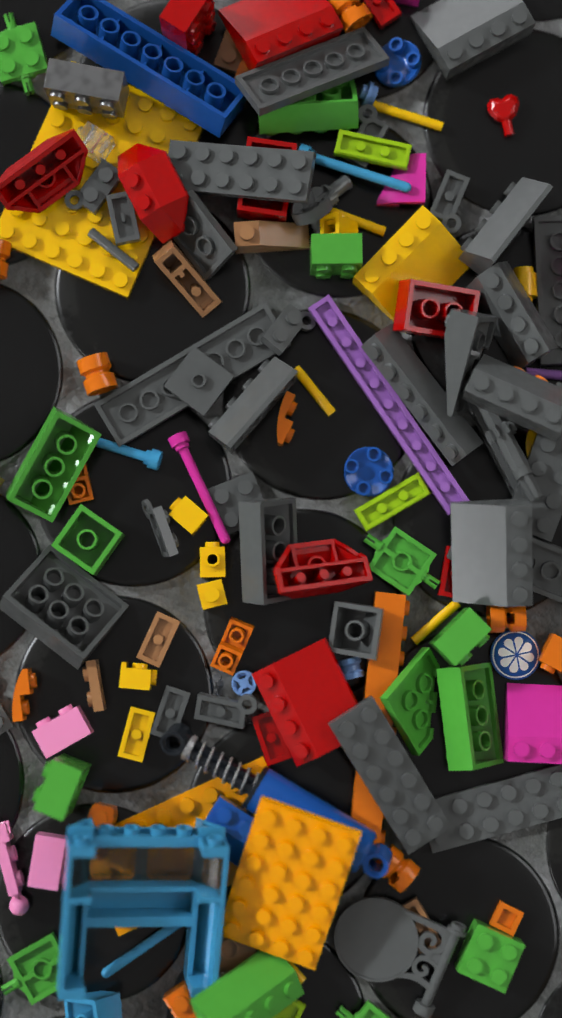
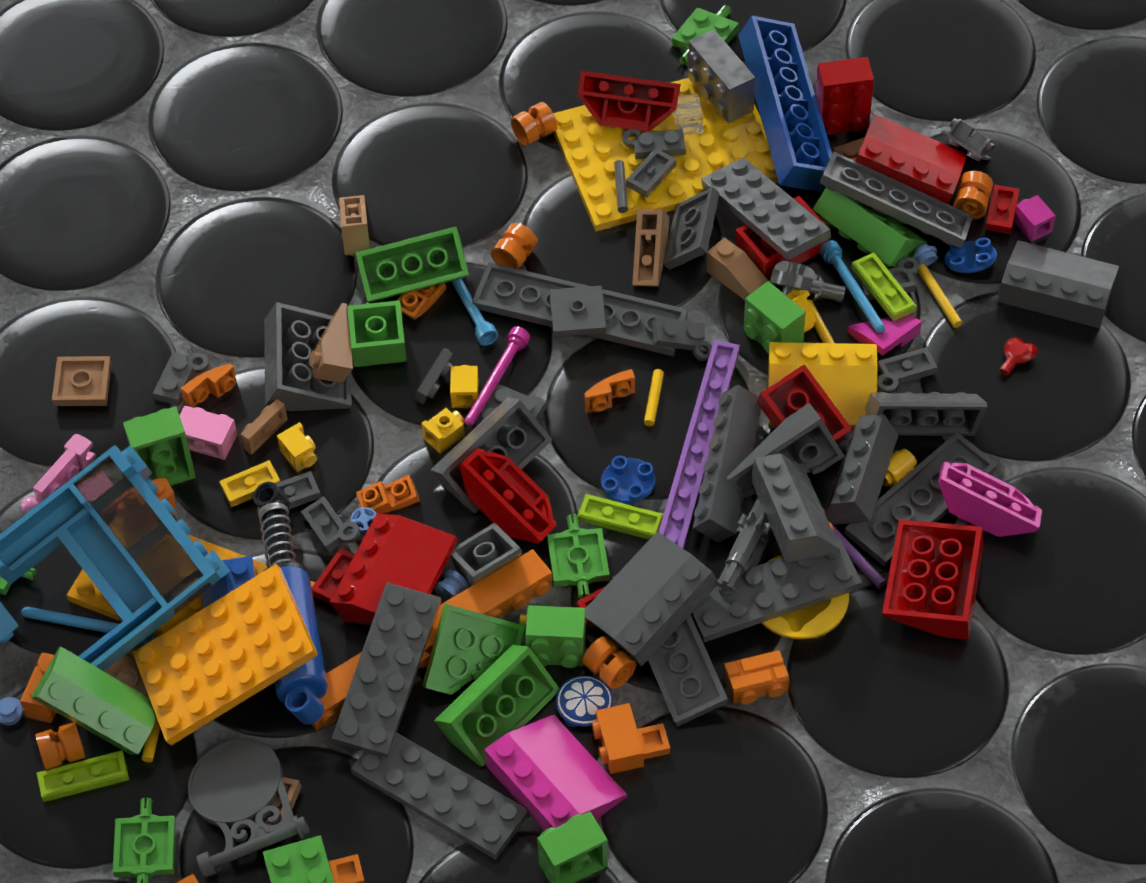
camera: 55 degrees right, 30 degrees down
(78, 587) = (333, 352): none -> medium nougat slope
(154, 190) = (689, 173): red wedge -> none
(158, 639) = (343, 441): medium nougat plate -> none
(212, 594) = (416, 447): yellow brick -> none
(253, 404) = (595, 361): dark grey slope -> none
(401, 870) = (311, 747): orange wheel -> none

